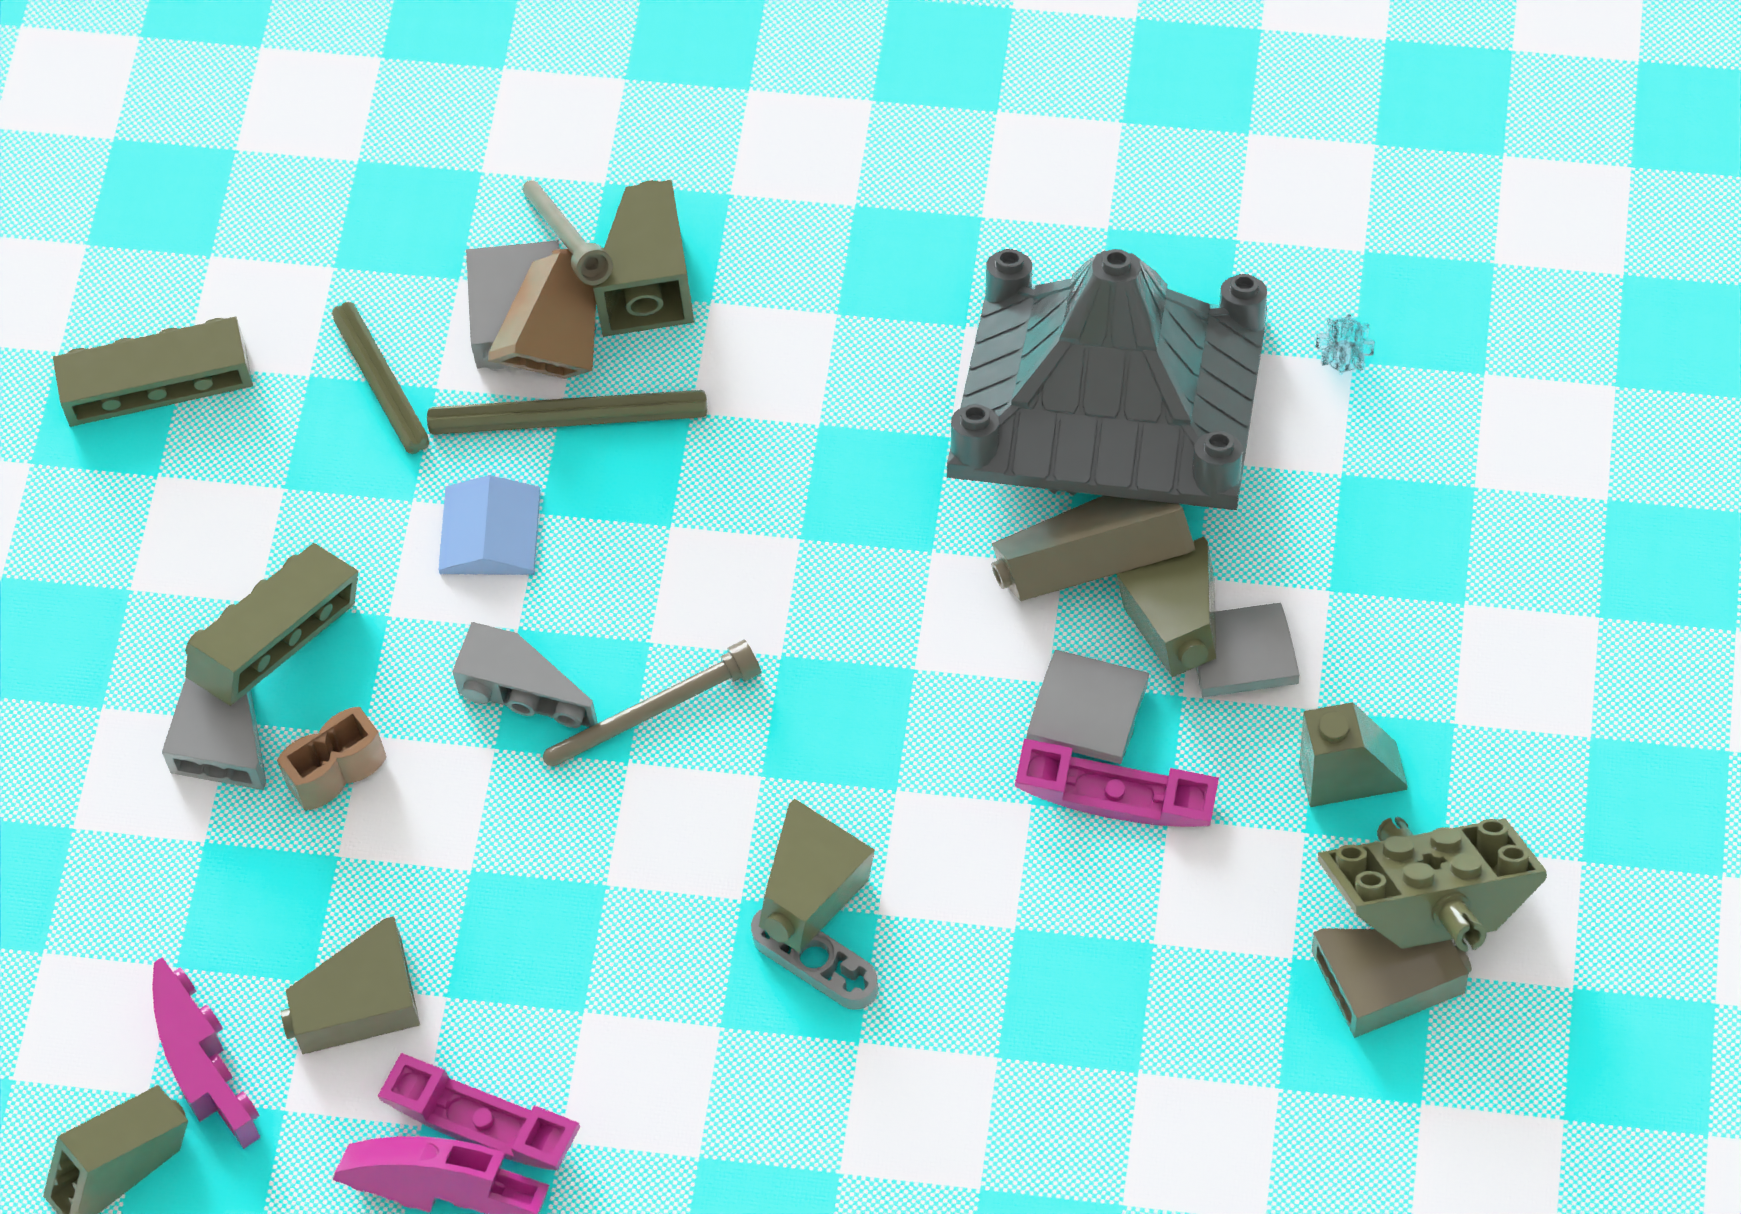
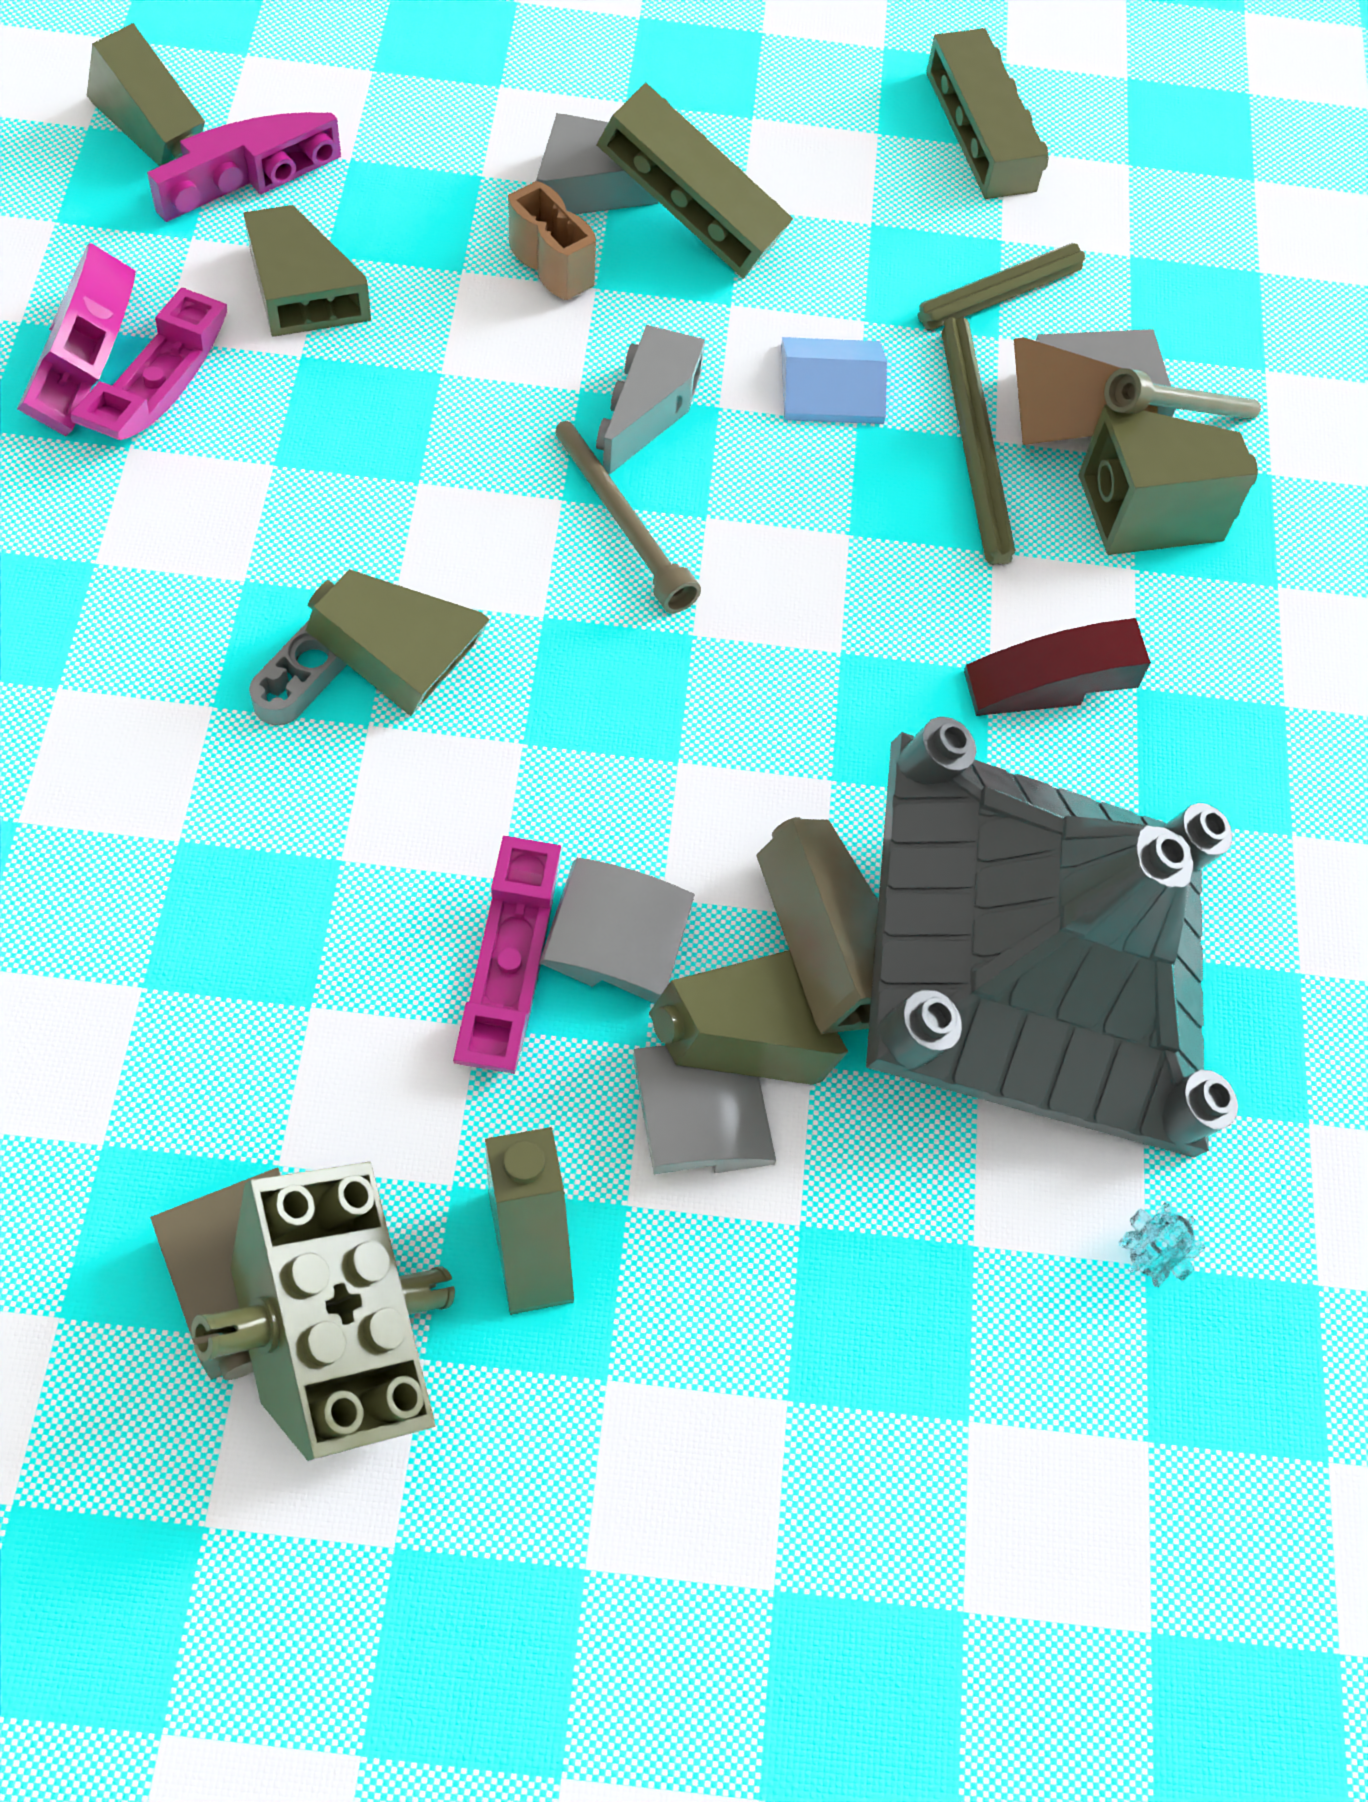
camera: 75 degrees right, 0 degrees up
(832, 367) = (1059, 668): none -> dark red slope

